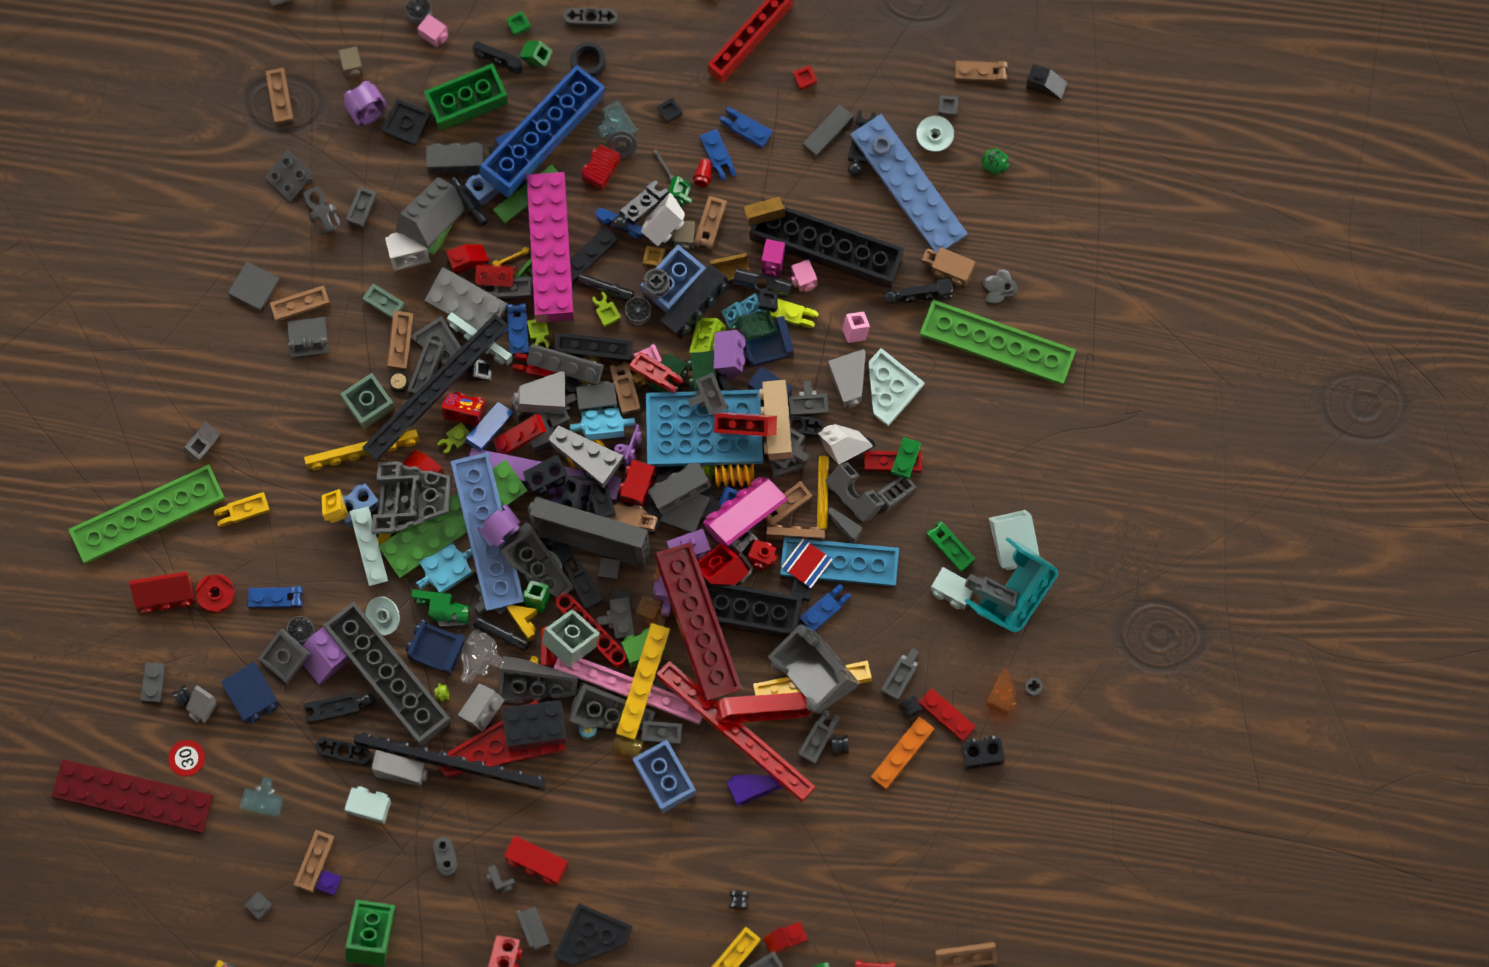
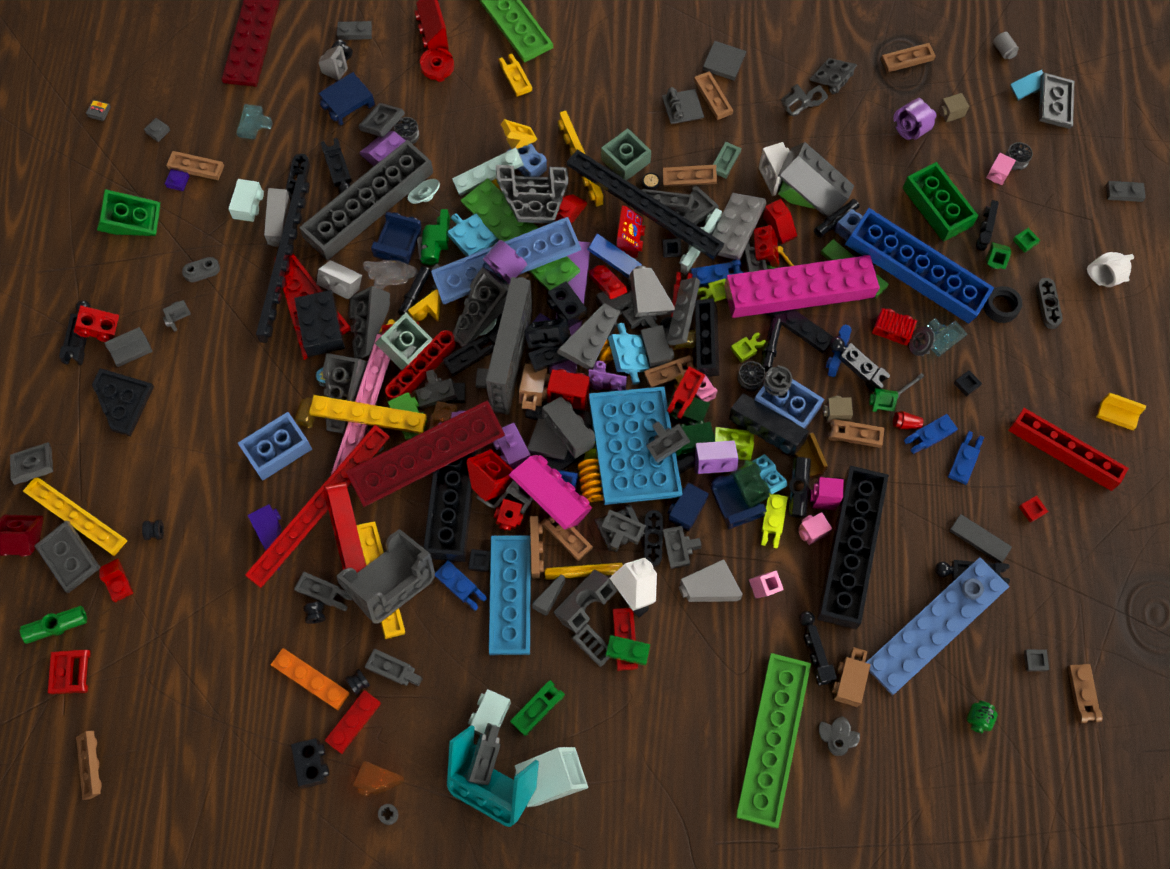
camera: 80 degrees right, 5 degrees down
(186, 758) = (290, 63): sticker -> none
(200, 442) = (572, 34): flat silver slope -> none
(275, 597) = (437, 109): blue plate -> none
(361, 207) = (814, 132): dark grey plate -> none
(406, 122) = (904, 157): black plate -> none
(442, 692) = (354, 249): lime plate -> none
(454, 158) = (876, 196): dark grey brick -> none
(456, 438) = (603, 231): lime plate -> none
(535, 861) = (193, 343): red brick -> none
(536, 596) = (449, 314): green brick -> none
(653, 256) = (811, 382): pearl gold plate -> none
(661, 731) = (322, 440): dark grey plate -> none
(663, 220) = (847, 384): white slope -> none
(745, 424) = (636, 475): red brick -> none
(764, 211) = (874, 476): pearl gold panel -> none
(767, 300) = (780, 492): black plate -> none
(776, 403) = (649, 511): tan brick -> none
(807, 563) = (504, 560): sticker -> none
(891, 386) = (707, 629): light aqua plate -> none
(938, 126) = (1009, 647): light aqua dish -> none
(1046, 82) = (1089, 766): black slope -> none

